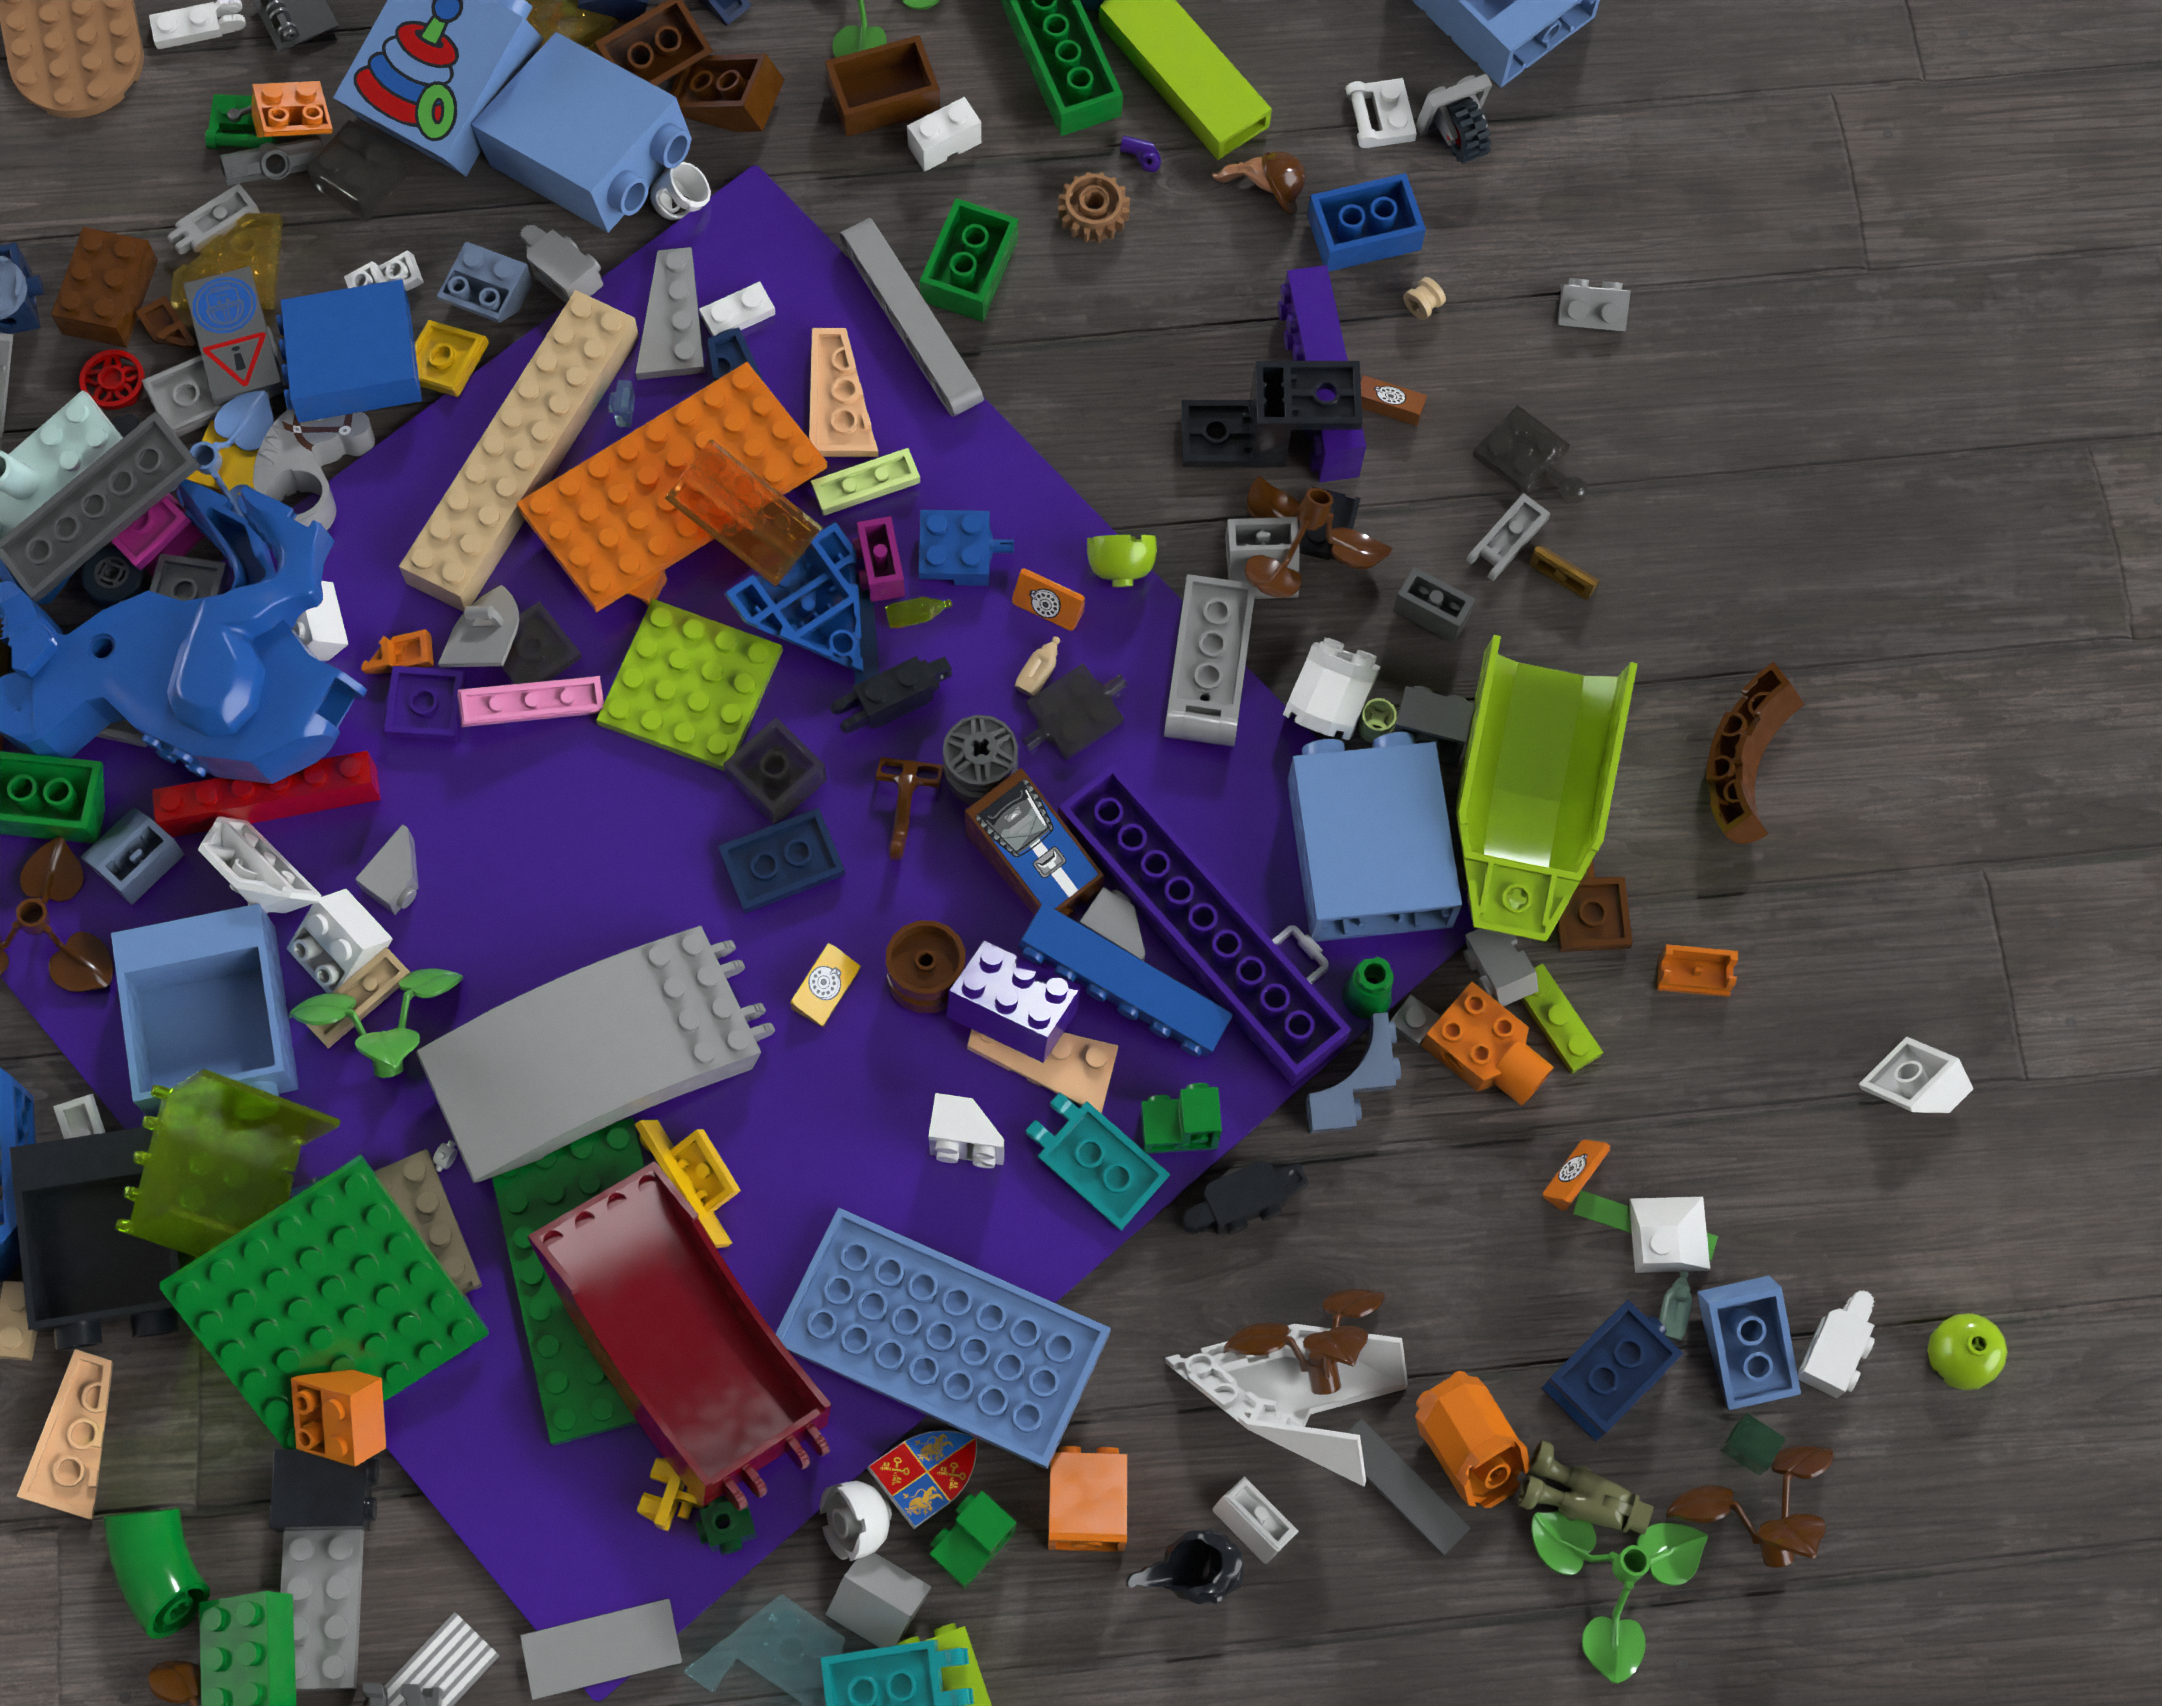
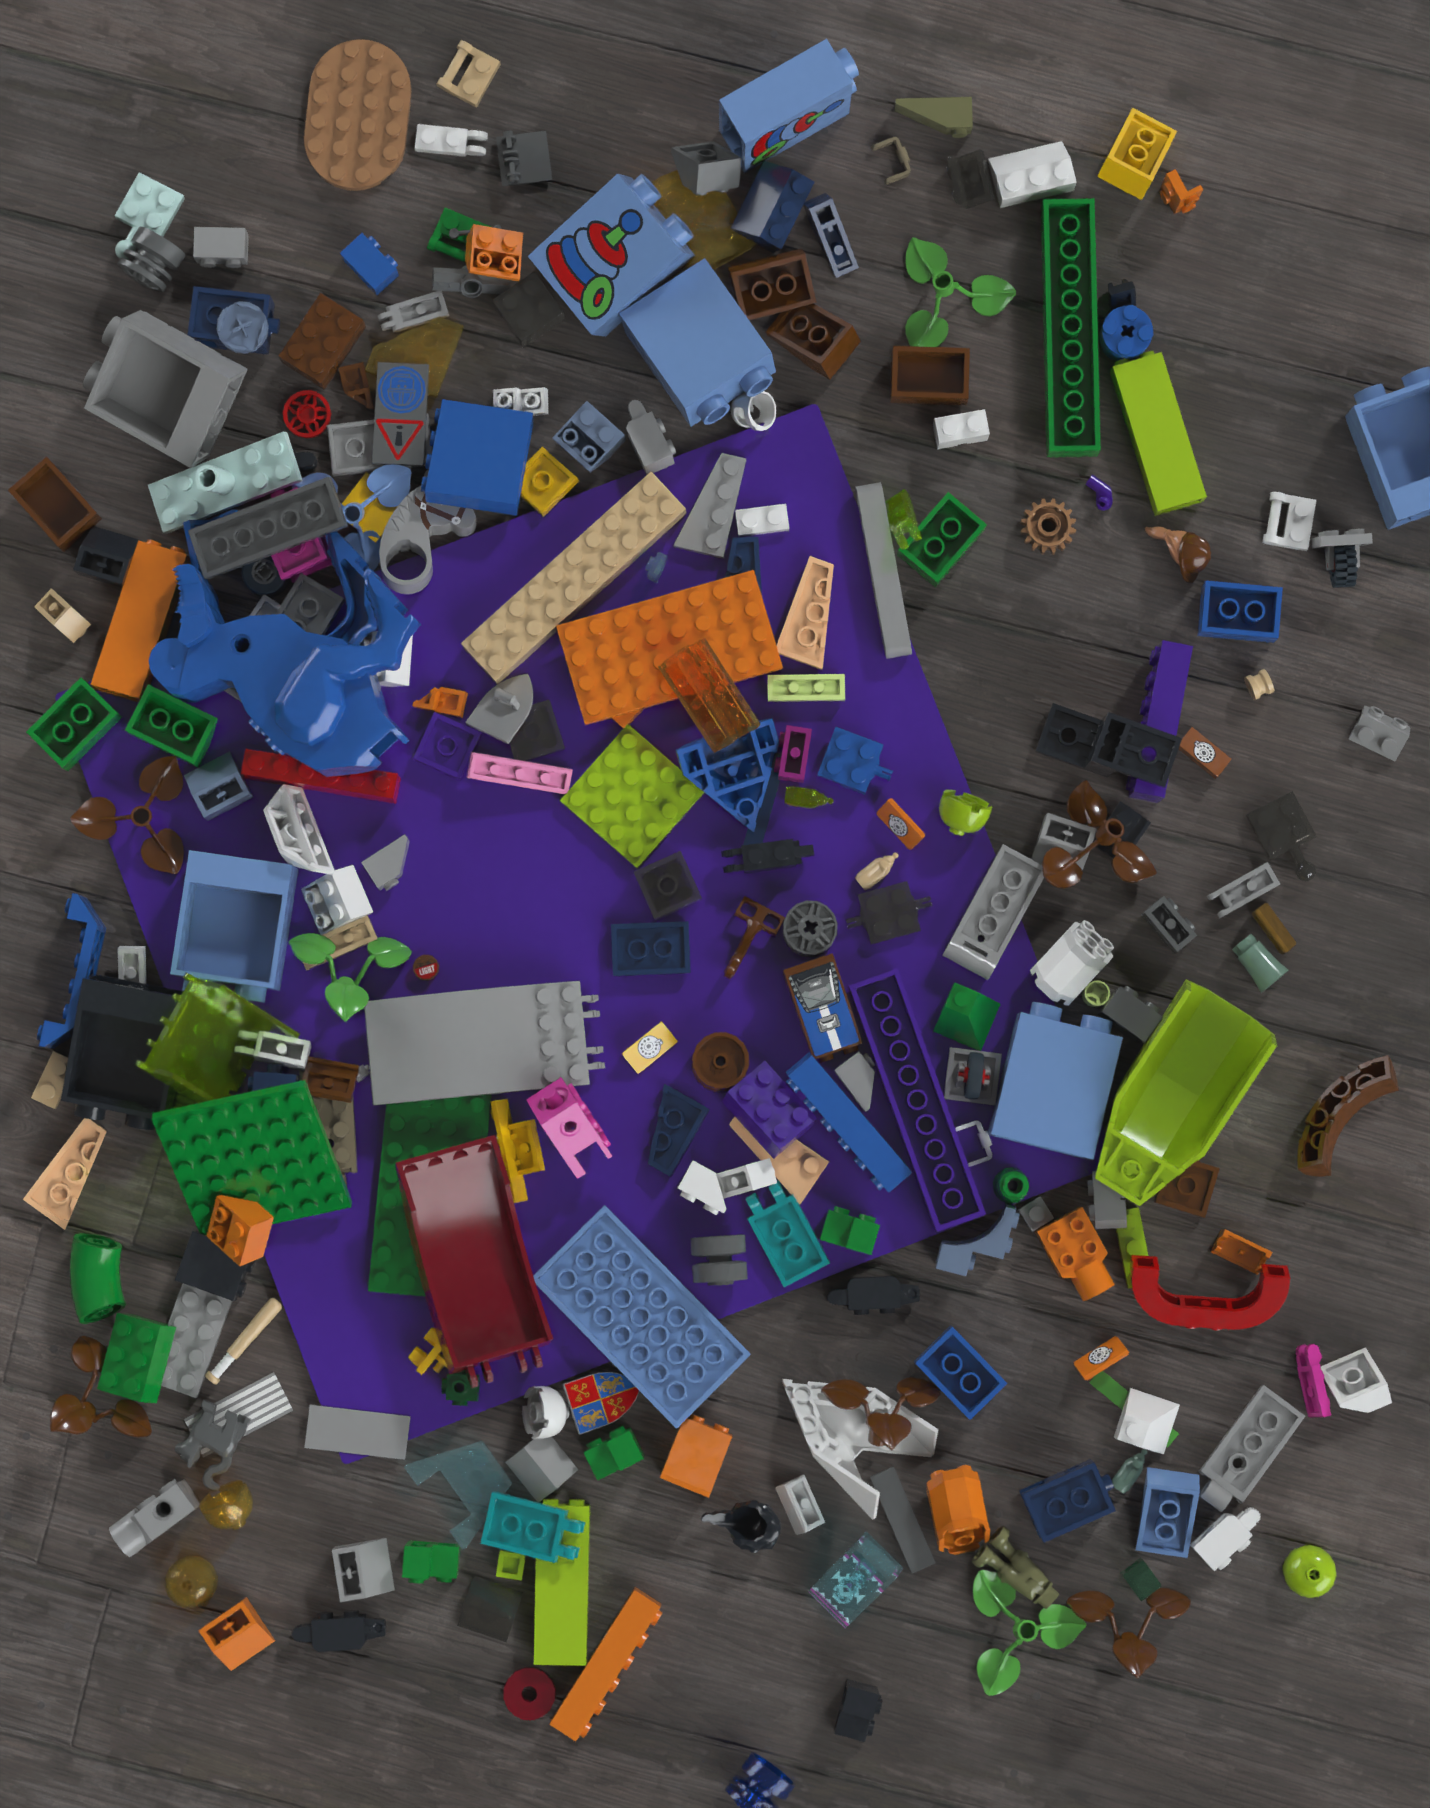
camera: 25 degrees right, 15 degrees up
(138, 183) = (369, 263): none -> blue brick
(310, 1155) = (276, 1049): none -> white hinge
(399, 1576) = (248, 1335): none -> tan piece
(408, 1169) = (331, 1079): none -> reddish brown plate
(489, 989) = (426, 967): none -> tile
(749, 1108) = (559, 1110): none -> dark pink torso
(899, 1075) = (675, 1129): none -> dark blue wing
(912, 247) = (902, 518): none -> clear neon green hinge
(1017, 1214) = (719, 1251): none -> dark grey wheel
(1020, 1100) = (746, 1178): none -> white slope
(1224, 801) = (966, 1016): none -> green slope
(1262, 871) = (972, 1076): none -> light grey plate
(1371, 1593) = (856, 1580): none -> clear light blue slope
(1400, 1255) = (960, 1372): none -> blue brick
(1565, 613) = (1259, 962): none -> sand green plant
(1745, 1034) = (1209, 1311): none -> red arch
(1818, 1203) = (1256, 1440): none -> light grey hinge
(1860, 1100) = (1312, 1381): none -> dark pink hinge

